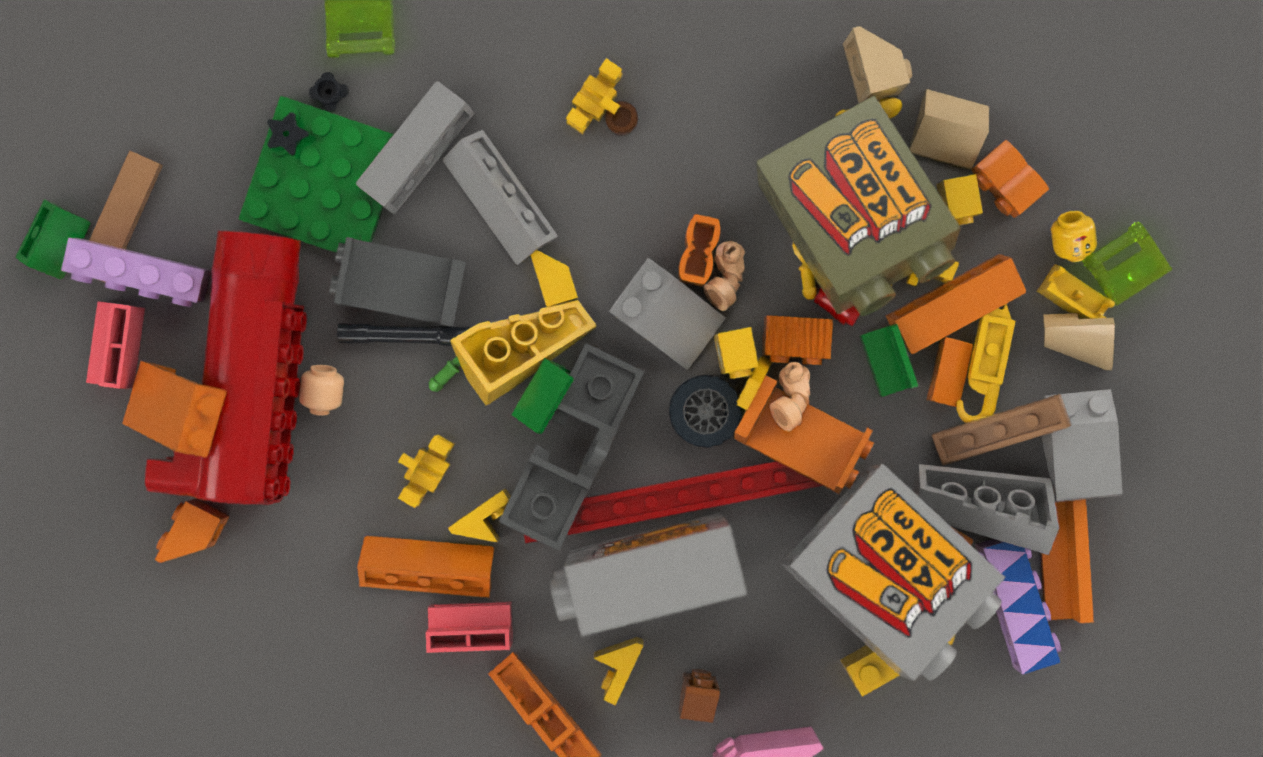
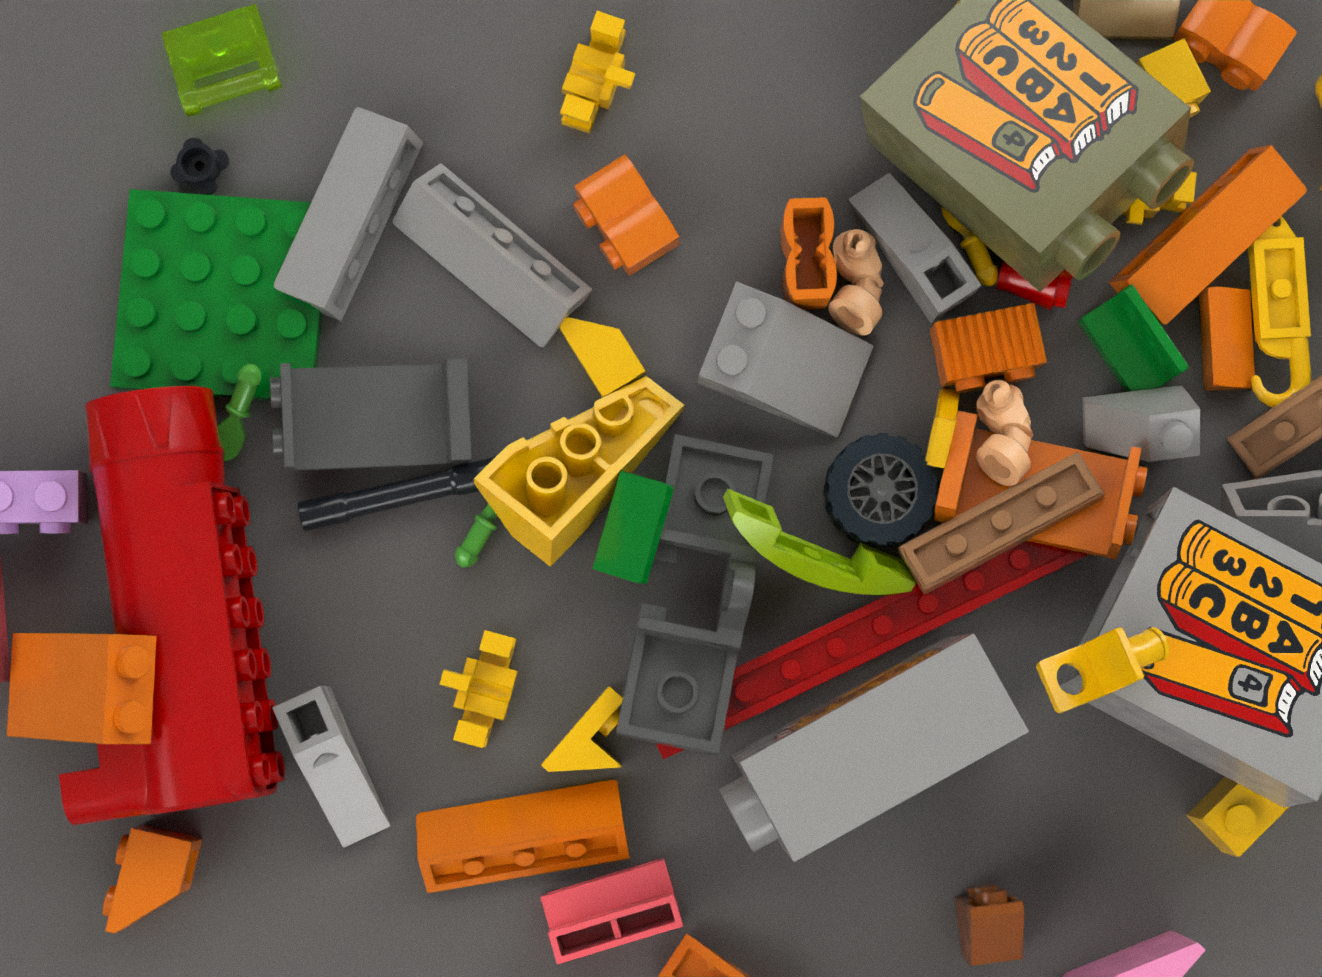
camera: 20 degrees left, 5 degrees down
(295, 136) = (162, 249): black plate -> none
(308, 266) = (231, 429): none -> bright green piece
(319, 492) = (332, 764): none -> light grey slope
(321, 389) = (296, 607): light nougat head -> none
(590, 194) = (625, 215): none -> orange brick
(621, 658) = (859, 897): yellow slope -> none
(624, 120) = (644, 98): reddish brown tile -> none
(682, 461) = (866, 573): none -> lime slope
(736, 352) = (904, 387): yellow brick -> none
(767, 262) = (915, 247): none -> light grey slope
(774, 452) = (1001, 523): none -> medium nougat tile
(806, 564) = (1104, 665): none -> yellow bracket
(885, 412) = (1156, 419): none -> light grey slope

